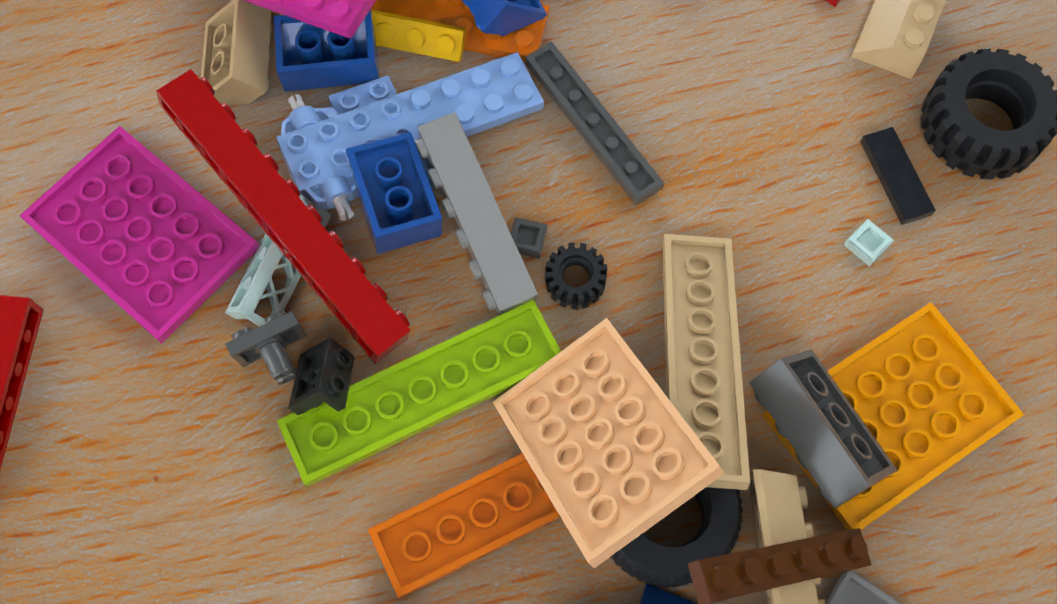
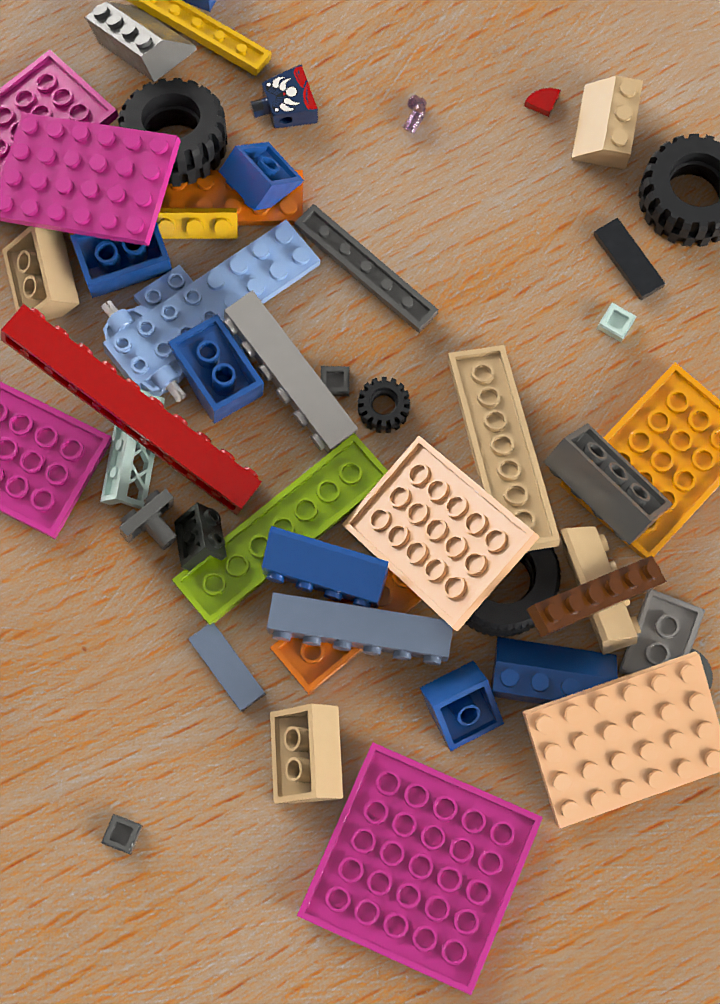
camera: 15 degrees left, 5 degrees up
(312, 541) = (227, 666): none -> sand blue tile
(454, 449) = (324, 568): none -> blue slope
(478, 531) = (360, 628): none -> sand blue brick

